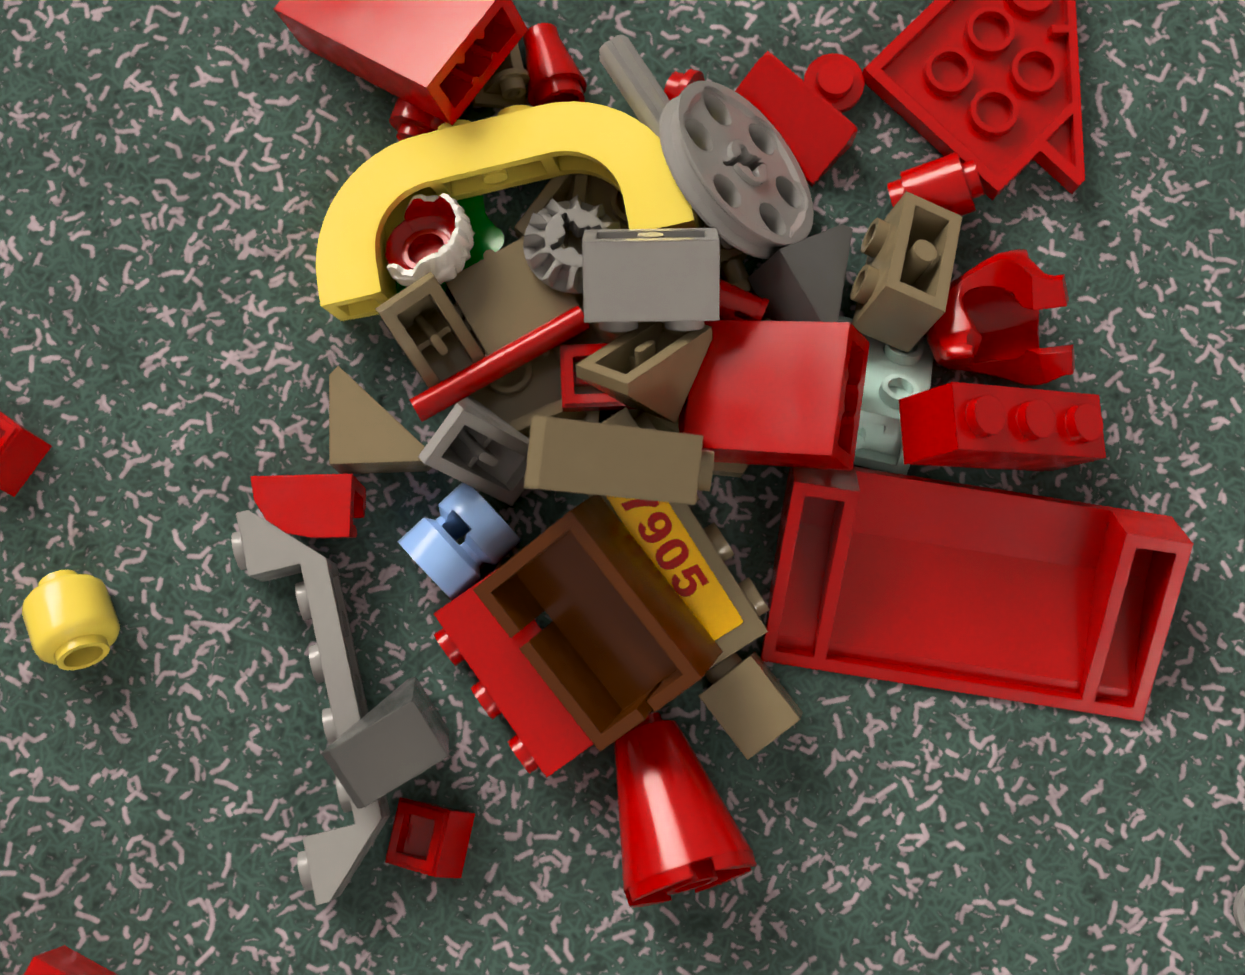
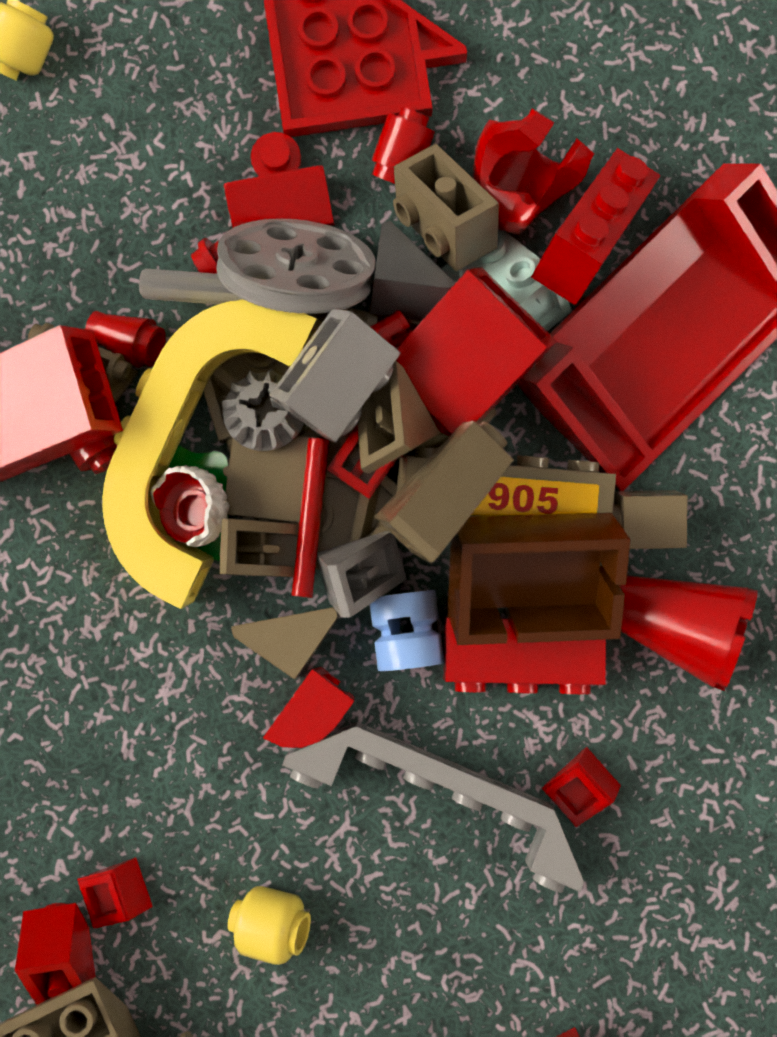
camera: 50 degrees left, 5 degrees up
(389, 745) = (512, 770): dark grey slope -> none

